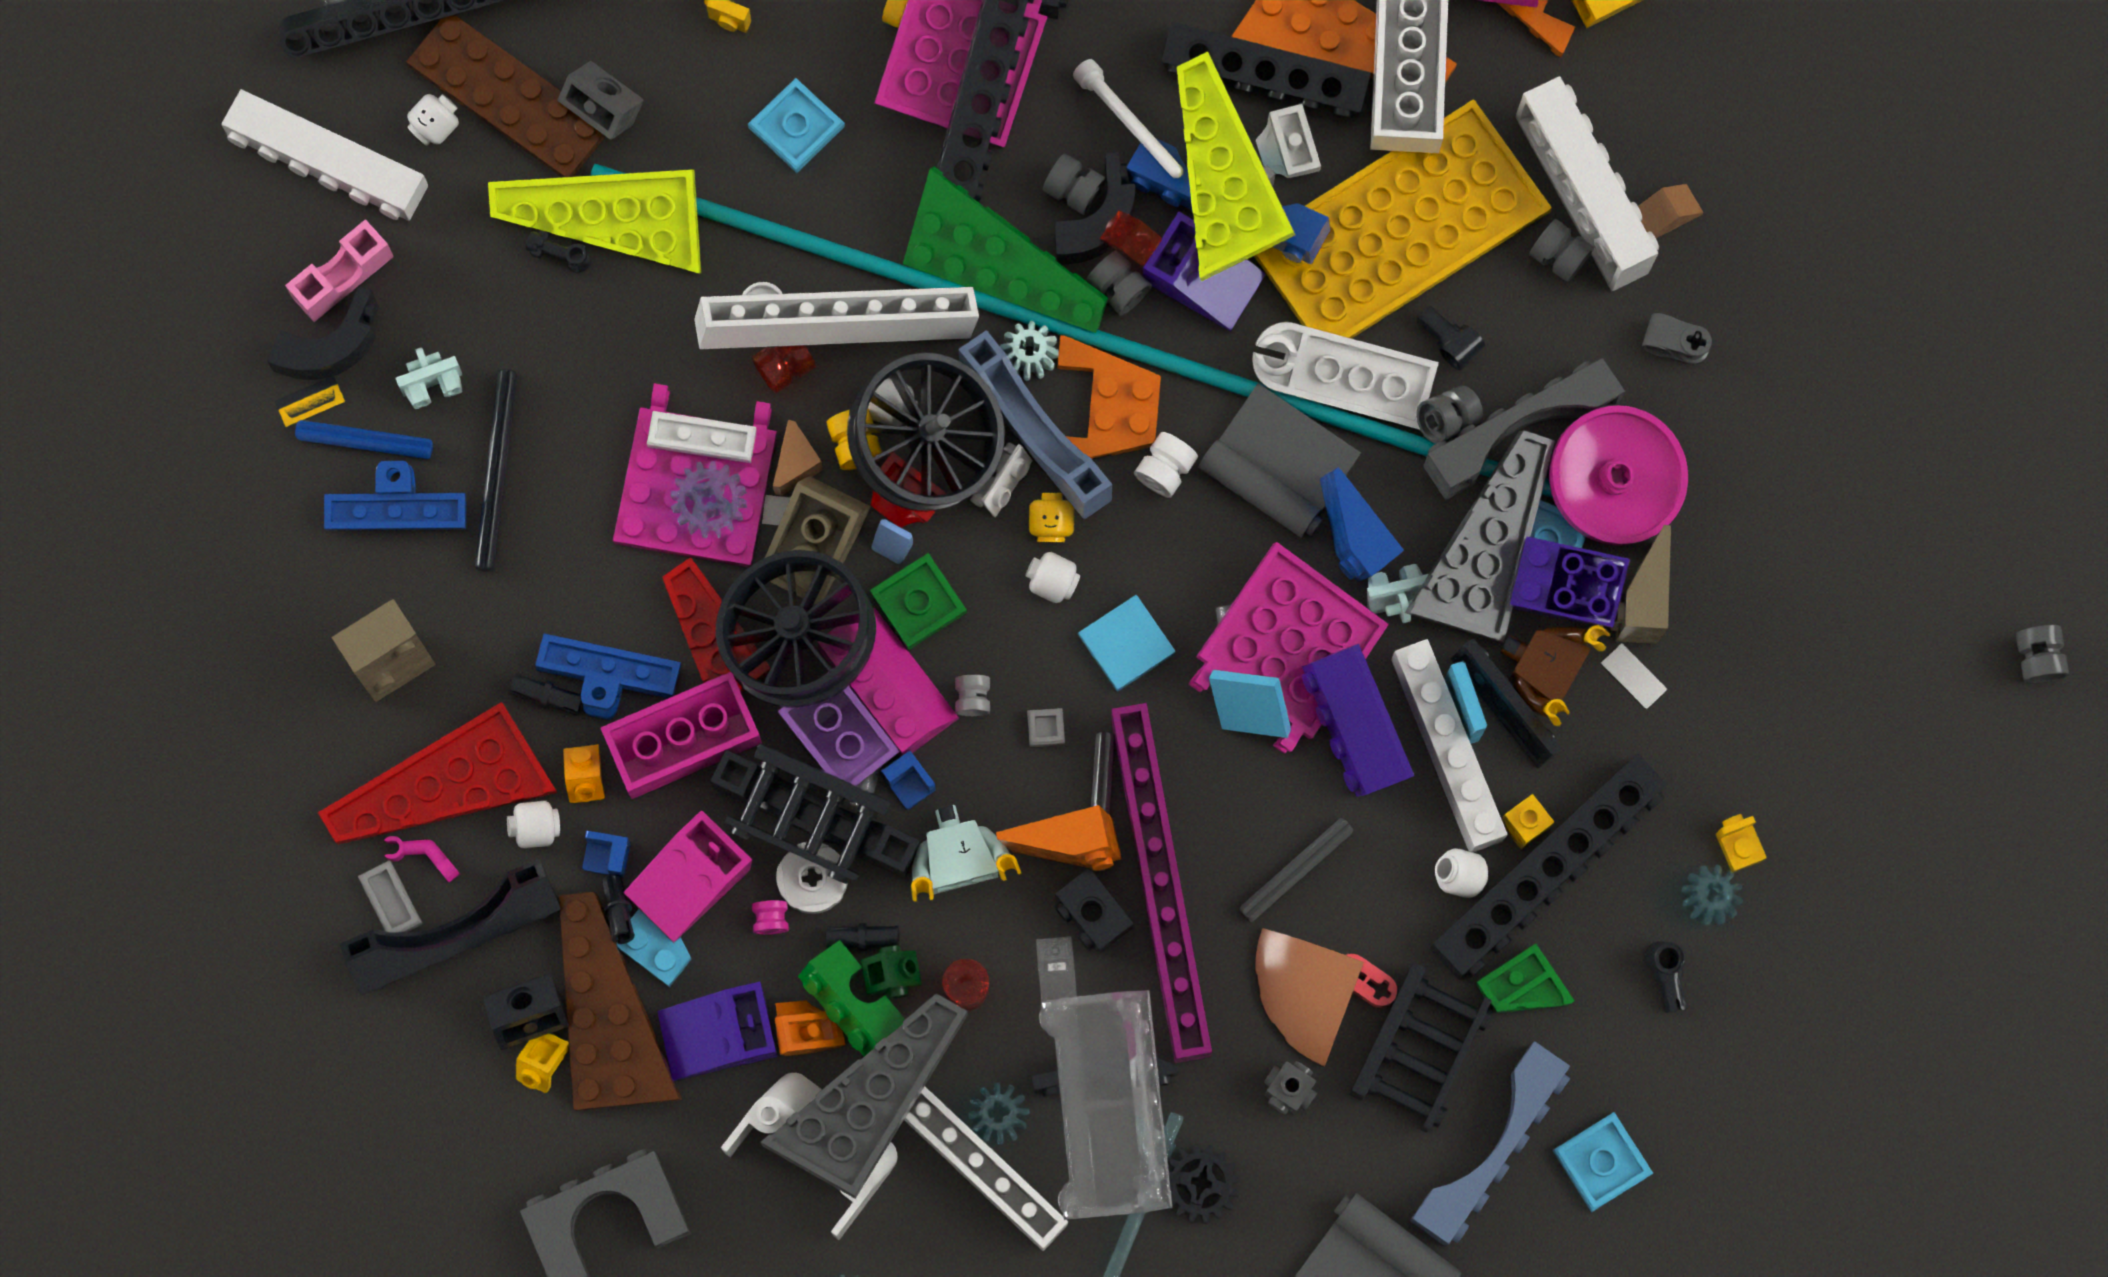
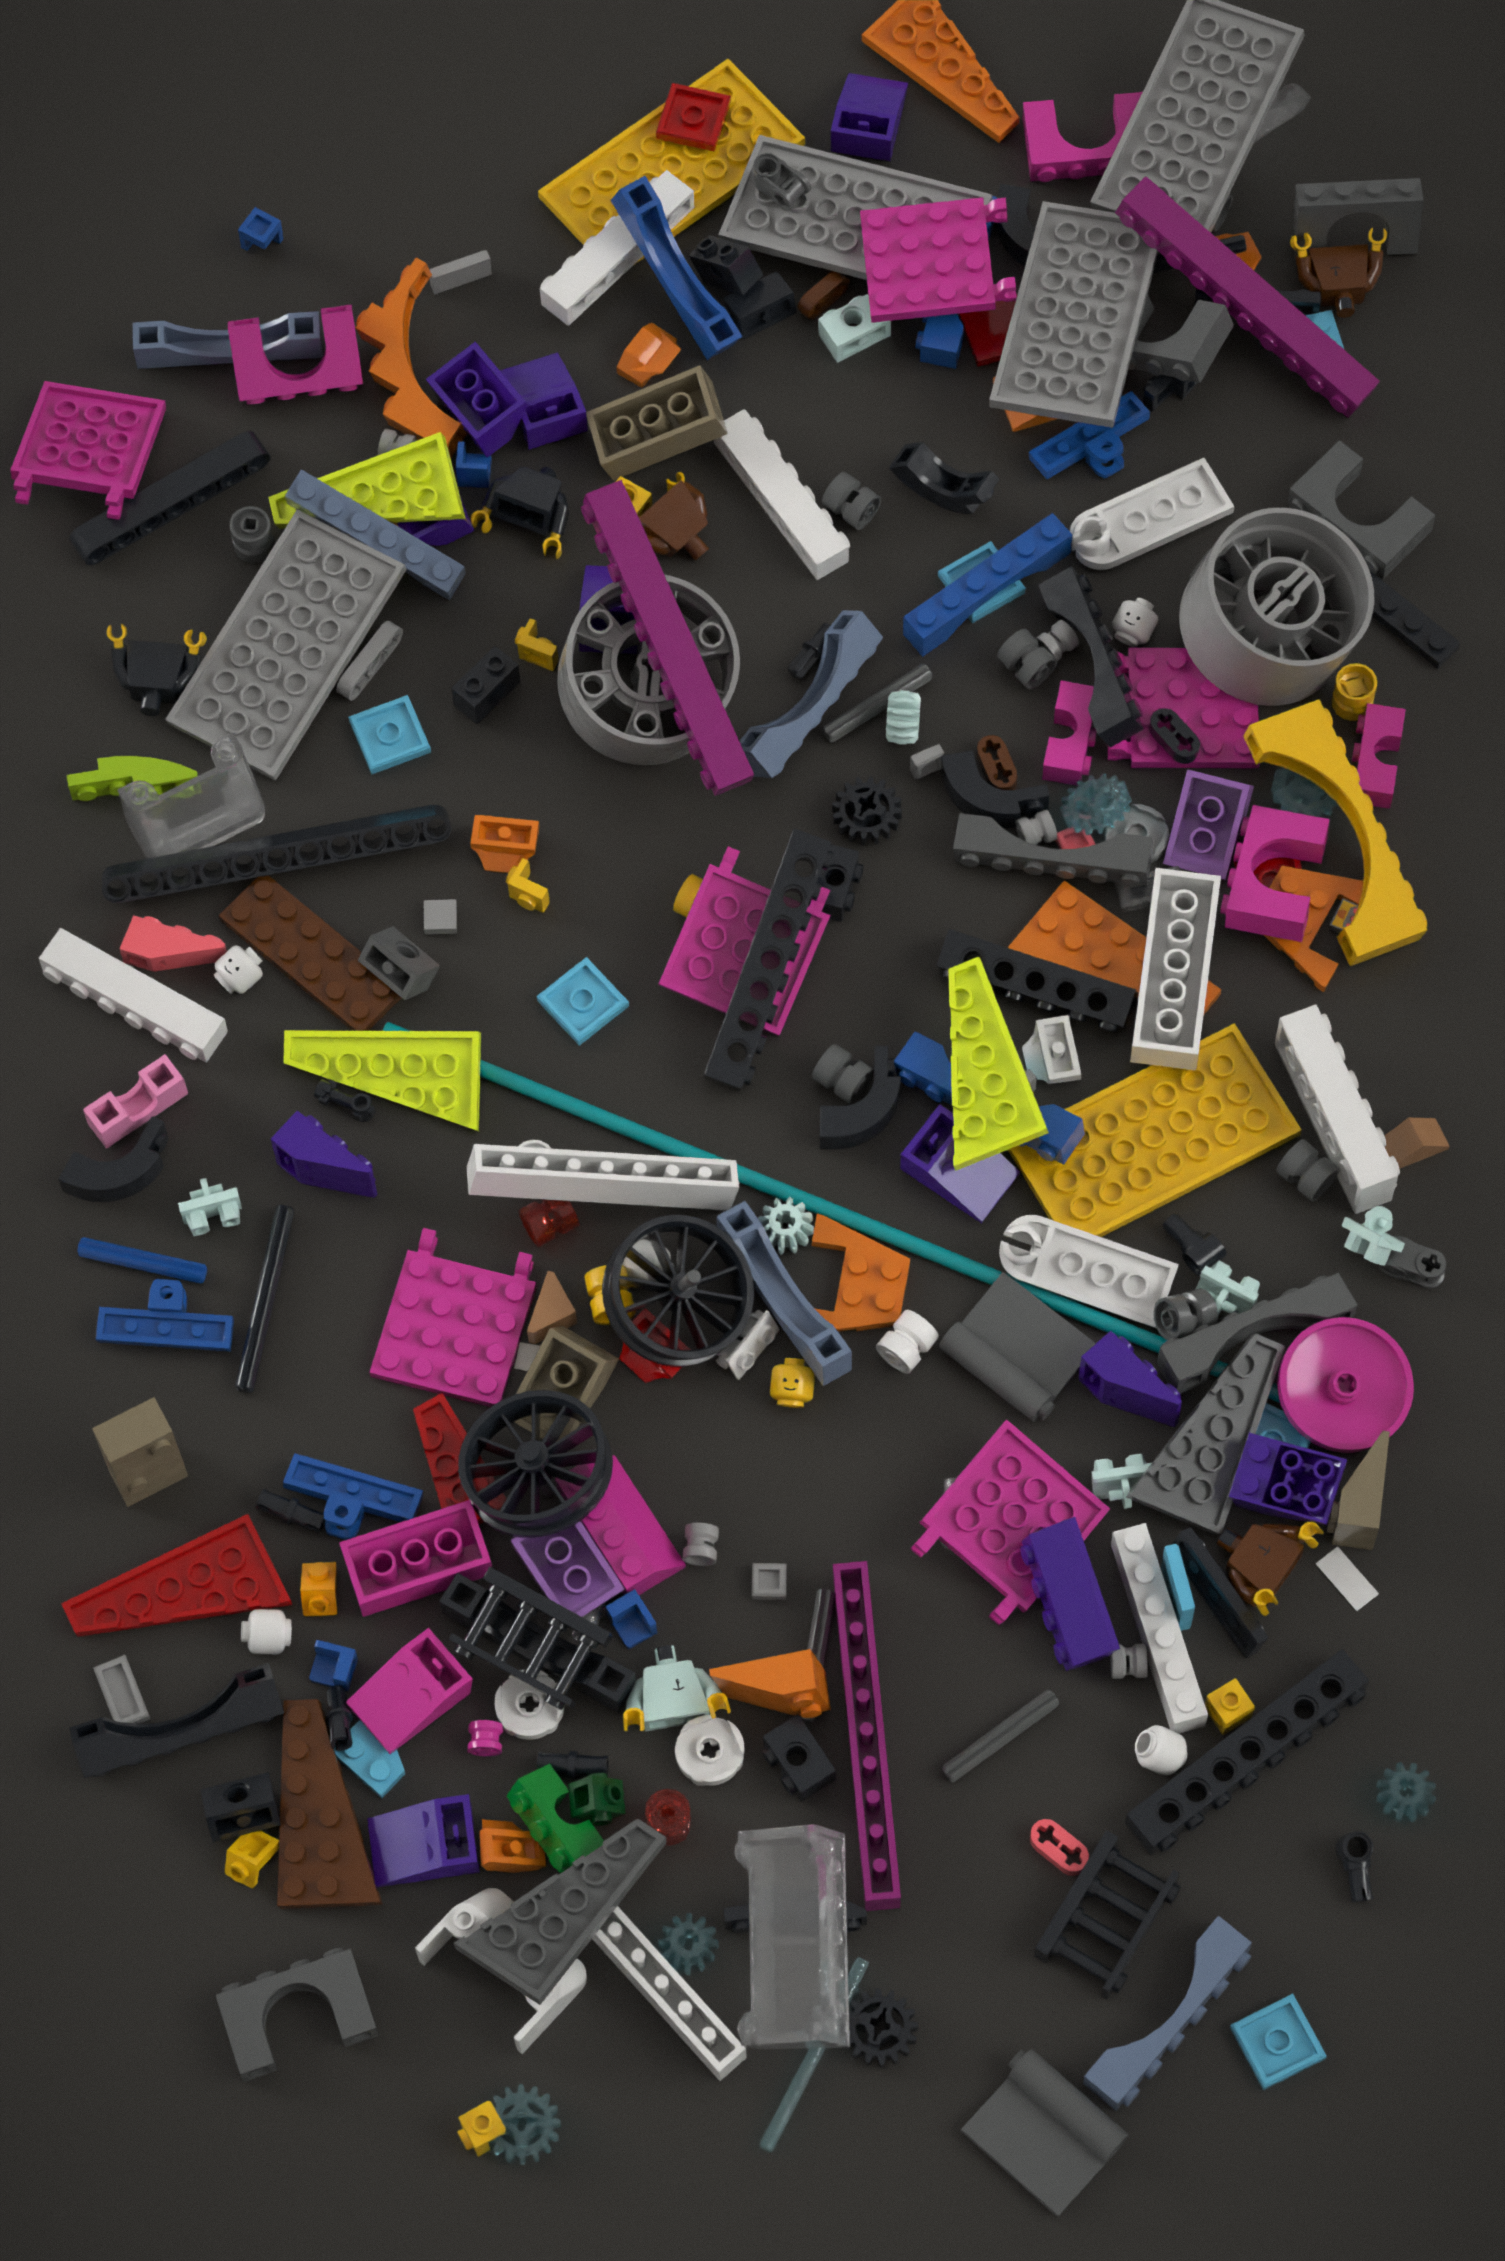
camera: 10 degrees right, 10 degrees down
(309, 401) = (94, 1221): sticker -> none
(352, 101) = (164, 947): none -> coral slope
(423, 847) = (163, 1646): dark pink arm -> none
(539, 318) = (320, 1159): none -> dark purple slope
(638, 45) = (440, 916): none -> light grey tile
(701, 437) = (463, 1280): white tile -> none
(716, 486) = (470, 1324): clear light blue gear -> none
(892, 541) = (637, 1394): light blue slope -> none
(918, 601) = (656, 1452): green plate -> none
(981, 250) = (745, 1125): green wing -> none
(994, 929) = (701, 1768): none -> white plate
(1052, 577) = (788, 1439): white head -> none
(1056, 968) = (757, 1805): clear tile -> none
(1091, 77) = (868, 976): white piece -> none
(1119, 283) = (881, 1173): dark grey wheel -> none
(1126, 643) = (854, 1507): medium azure tile -> none
(1131, 237) = (892, 1124): clear red bracket -> none
(1250, 703) = (967, 1570): medium azure tile -> none
(1280, 1097) = (973, 1953): dark grey brick -> none
(1304, 991) = (999, 1851): nougat brick -> none
(1356, 531) = (1086, 1417): blue slope -> none
(1398, 491) = (1126, 1382): none -> dark purple slope
(1427, 785) = (1136, 1661): none -> light grey wheel
(1489, 387) = (1226, 1292): none -> light aqua hips
(1524, 984) = (1214, 1863): green wing -> none
(1634, 311) = (1371, 1237): none -> light aqua hips
(1740, 842) = (1438, 1744): yellow bracket -> none

